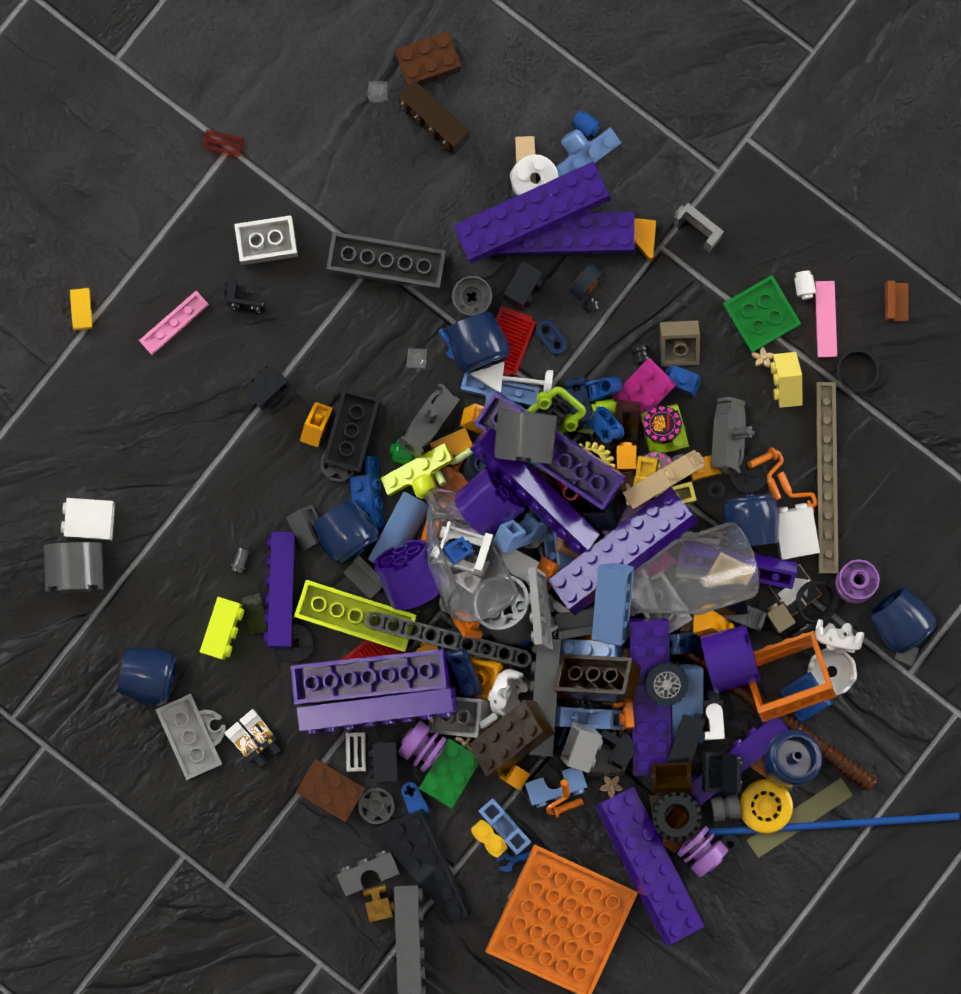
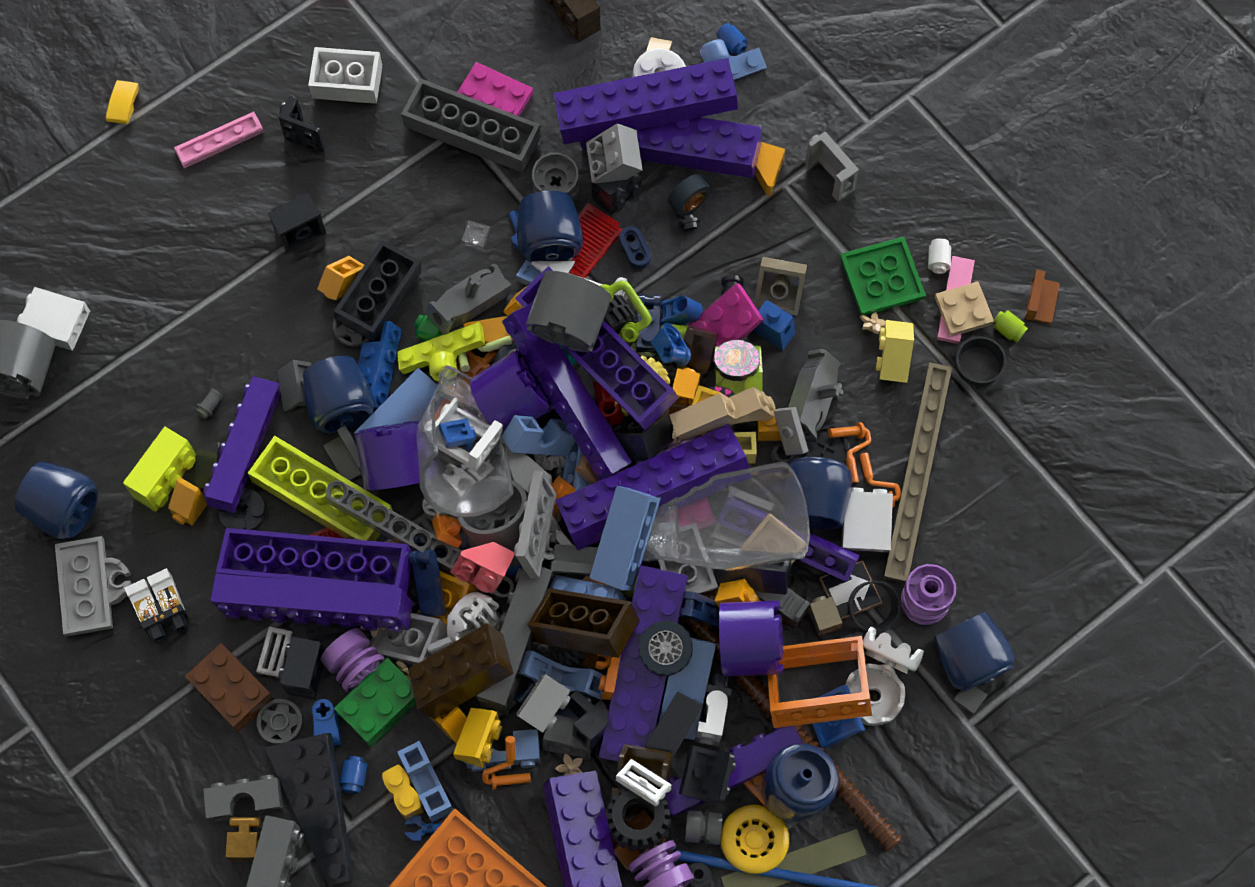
camera: 15 degrees right, 15 degrees down
(250, 651) = (186, 502): none -> light orange slope
(395, 222) = (496, 89): none -> dark pink plate
(446, 834) = (353, 775): none -> blue brick
(510, 652) = (483, 566): none -> coral slope
(512, 688) = (476, 612): none -> white tile
(518, 271) = (614, 154): none -> light grey slope
(537, 785) = (477, 737): none -> yellow slope
(690, 798) = (628, 780): none -> white tile
(719, 474) = (790, 431): none -> light grey plate
(835, 328) = (964, 309): none -> tan plate
(875, 333) = (1009, 326): none -> lime brick

